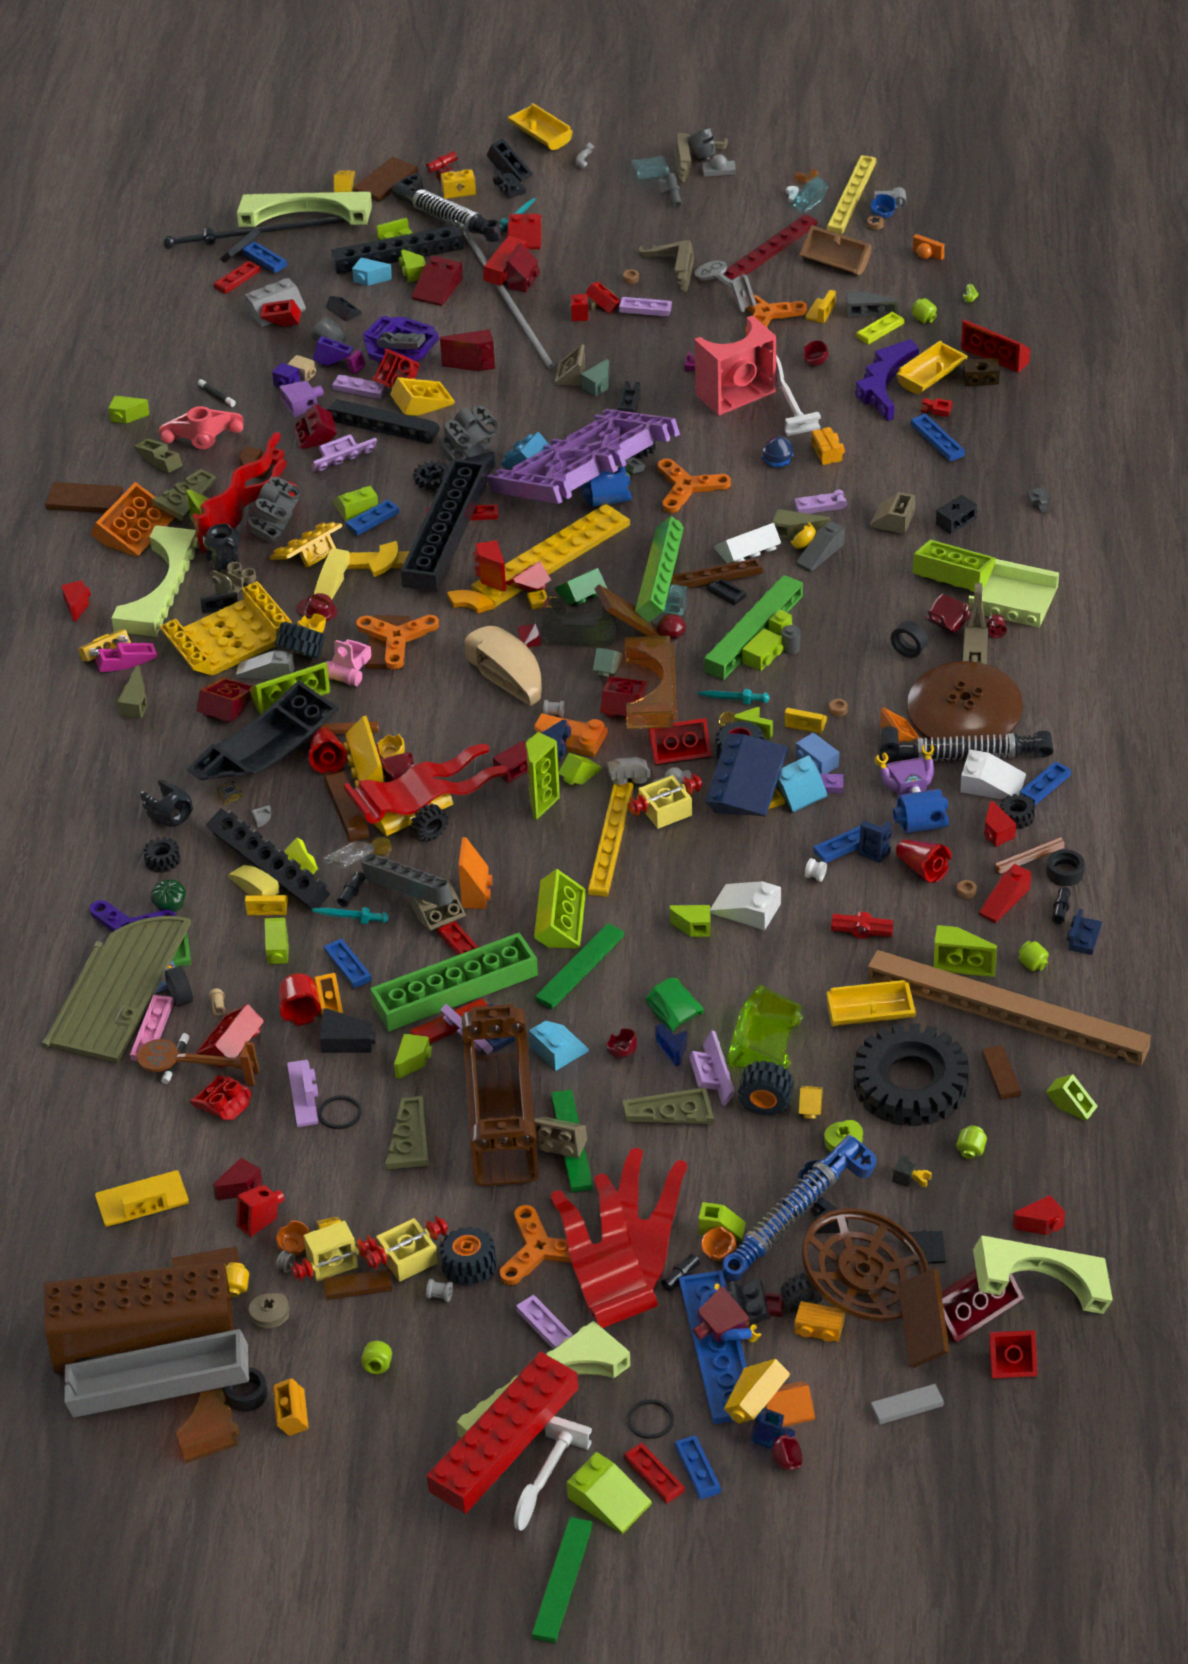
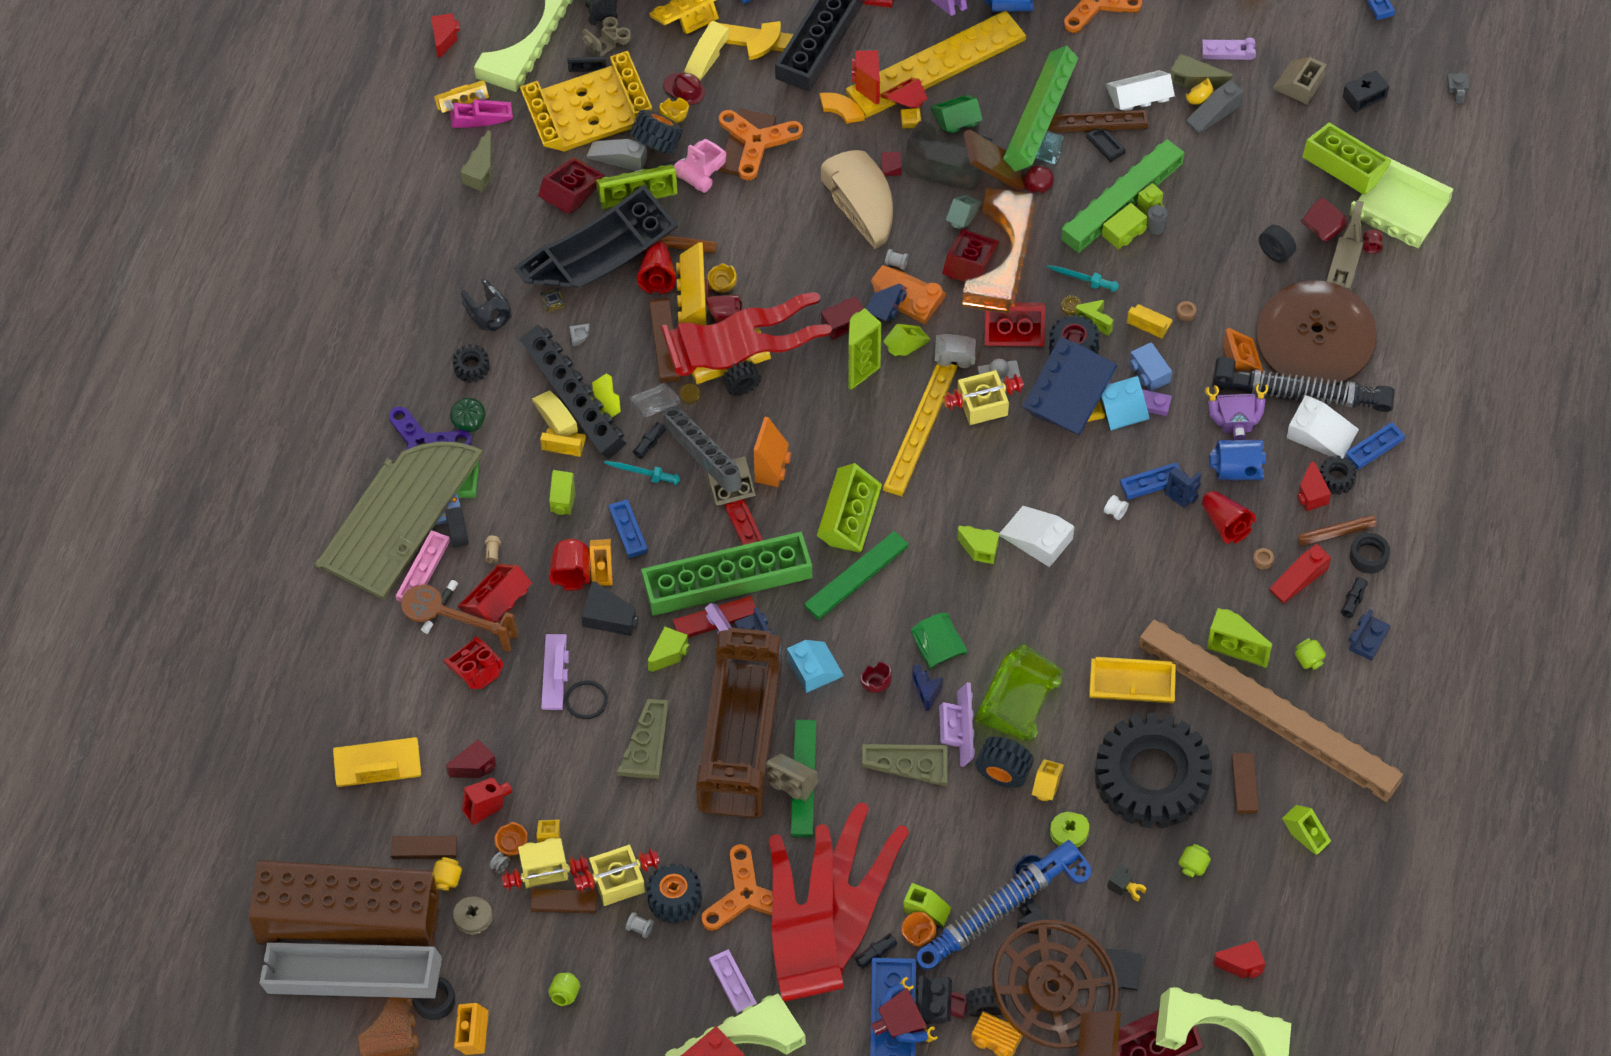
camera: 10 degrees right, 15 degrees up
(862, 925) = (1147, 582): red piece -> none

